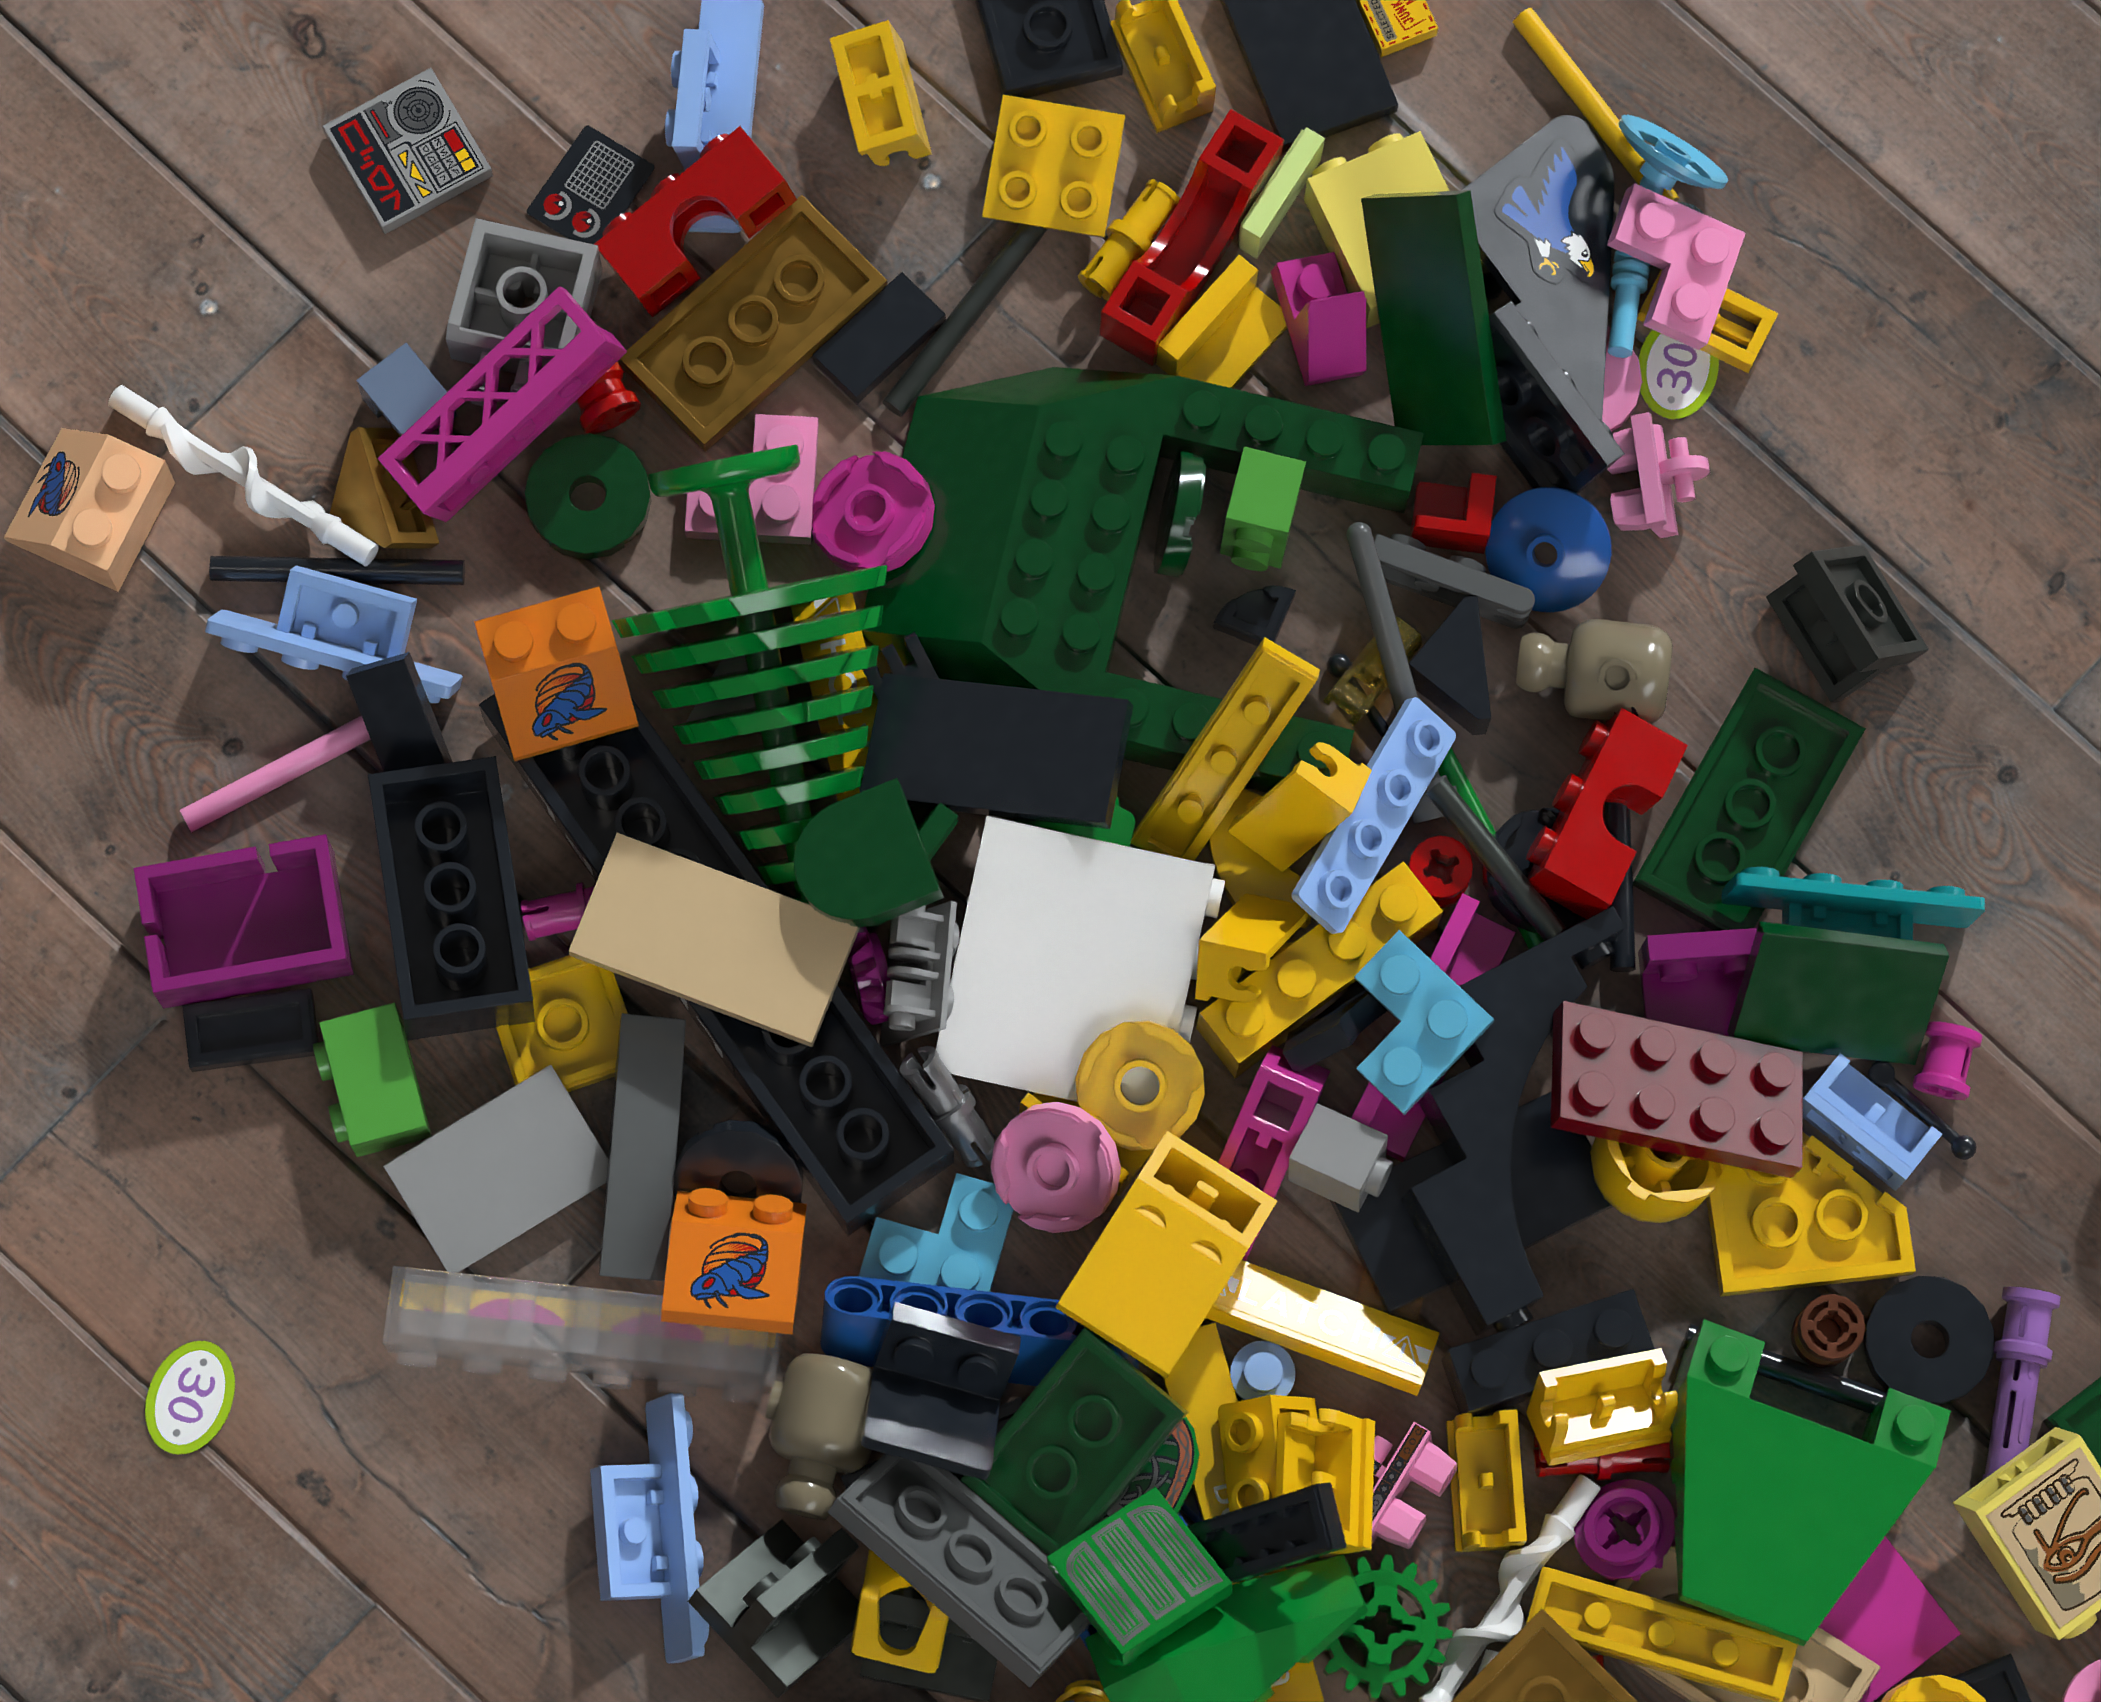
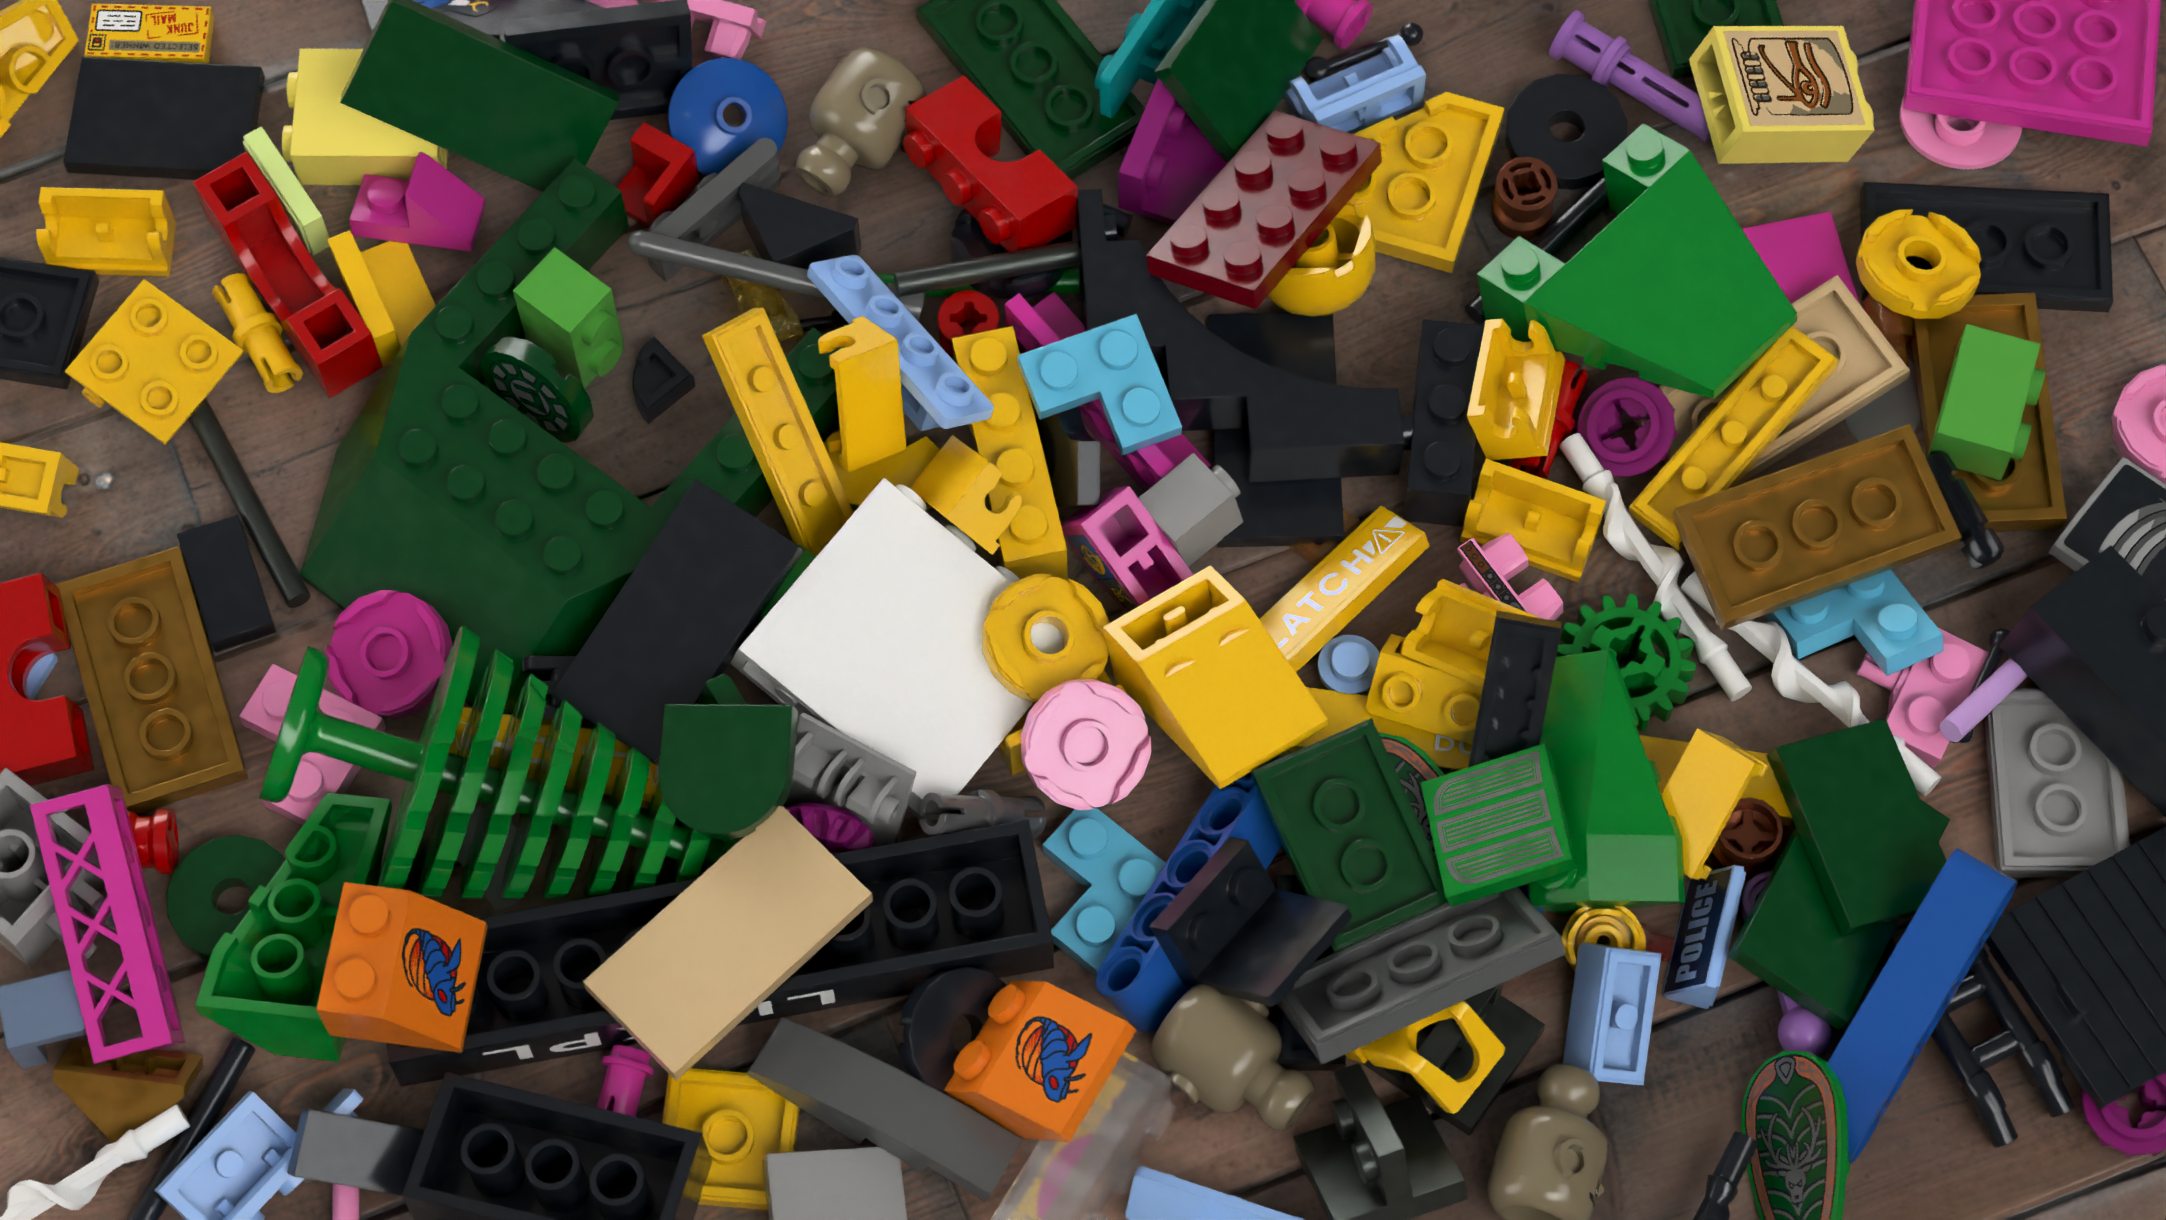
camera: 60 degrees left, 10 degrees down
(529, 557) = (273, 964): none -> green wedge

